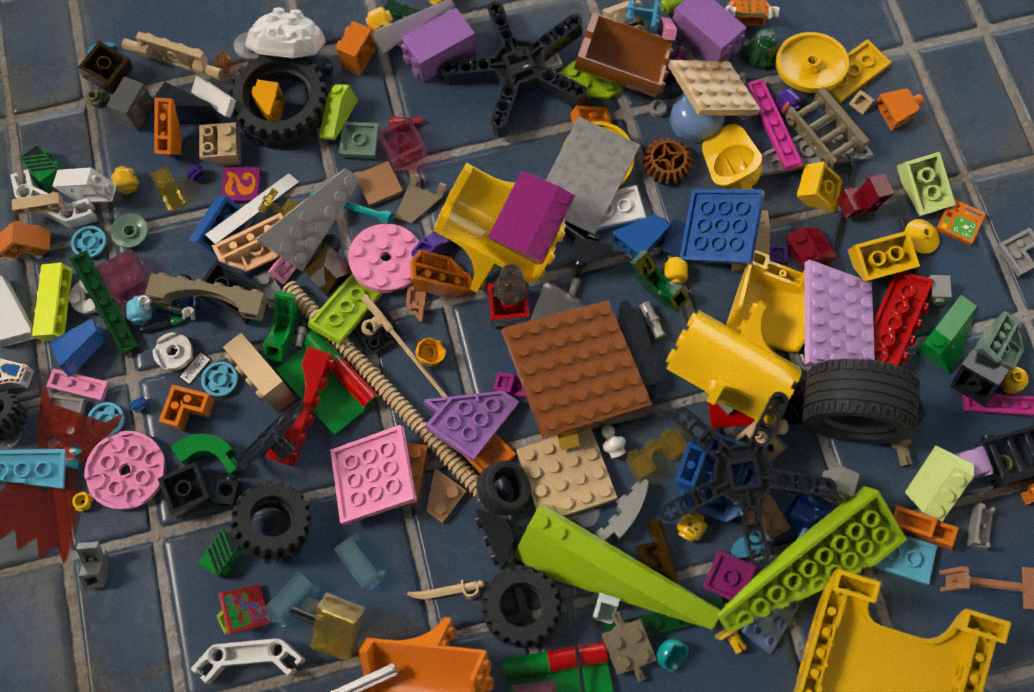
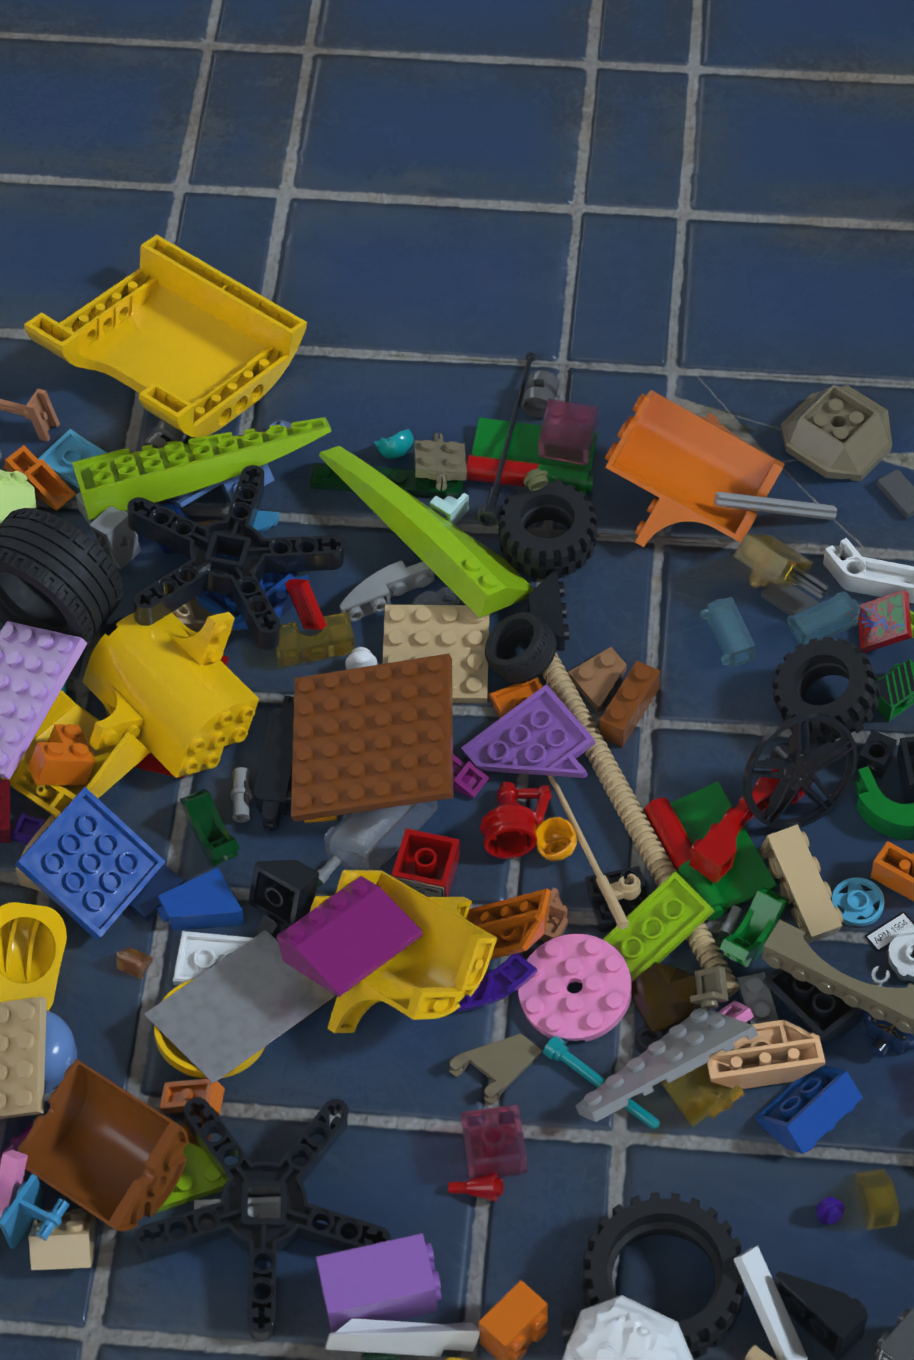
camera: 160 degrees left, 15 degrees down
(166, 128) = (859, 1268): orange slope -> none
(220, 144) = (781, 1234): tan slope -> none
(241, 183) = (762, 1173): magenta tile -> none
(249, 210) = (751, 1117): white sticker -> none
(269, 100) = (681, 1276): light orange slope -> none
(296, 273) = (710, 987): none -> dark tan bracket
(337, 110) = (574, 1230): lime slope -> none
(359, 140) = (557, 1181): sand green plate -> none
(372, 475) = (681, 707): bright pink plate -> none
(379, 184) = (549, 1106): medium nougat tile -> none
(463, 587) = (628, 579): tan sword -> none
(464, 350) = (510, 826): none -> red piece
(511, 285) = (418, 854): clear smoke piece -> none
(539, 629) = (536, 479): none -> olive plate
(657, 553) = (366, 537): dark brown bracket -> none
(666, 191) = (133, 962): none -> clear orange slope
(669, 460) = (305, 604): none -> red tile
(671, 152) = (100, 987): dark orange gear -> none
(676, 270) = (179, 845): yellow head -> none
(728, 575) = (292, 497): magenta tile -> none
(733, 638) = (312, 450): yellow bracket -> none
(774, 293) = (63, 758): none -> orange brick

